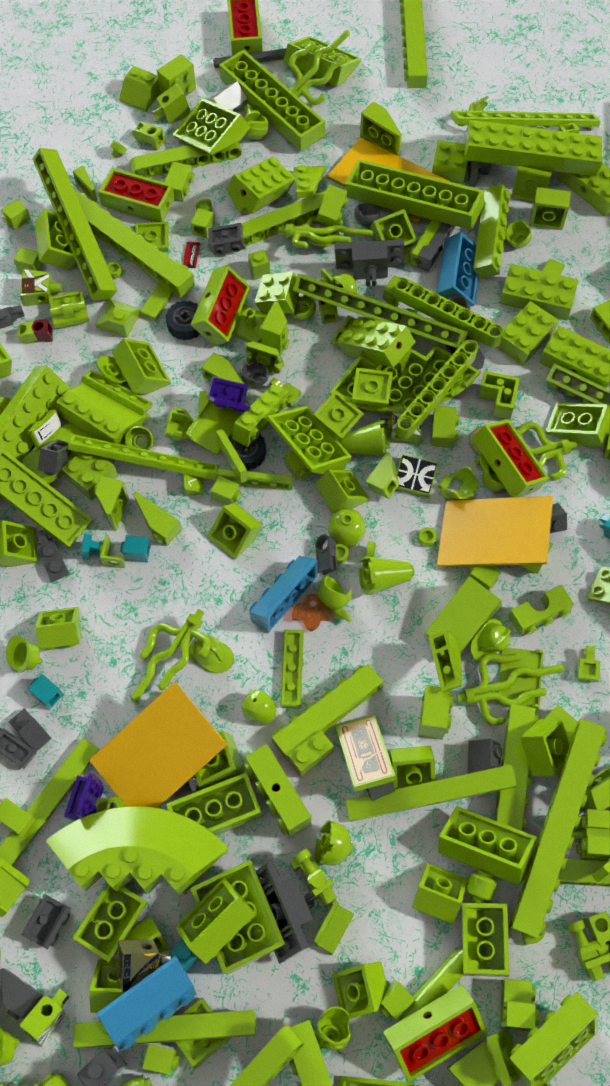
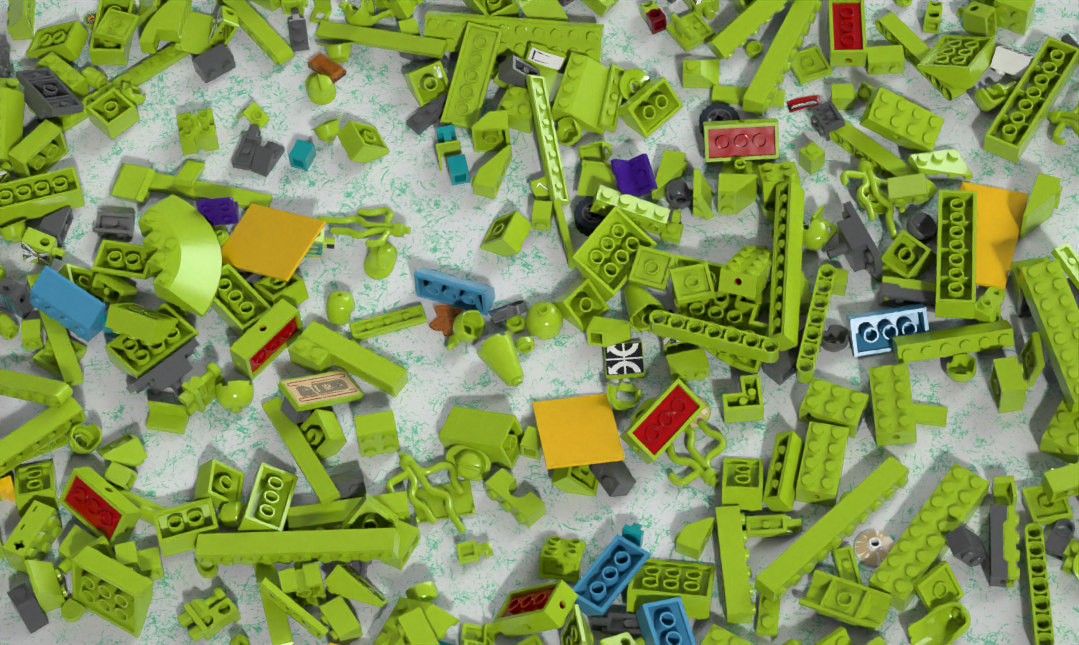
camera: 75 degrees right, 10 degrees down
(138, 960) = (98, 283): olive torso -> none
(231, 455) = (572, 200): lime tile -> none
(427, 537) = (560, 388): lime tile -> none
(447, 660) = (429, 418): lime slope -> none

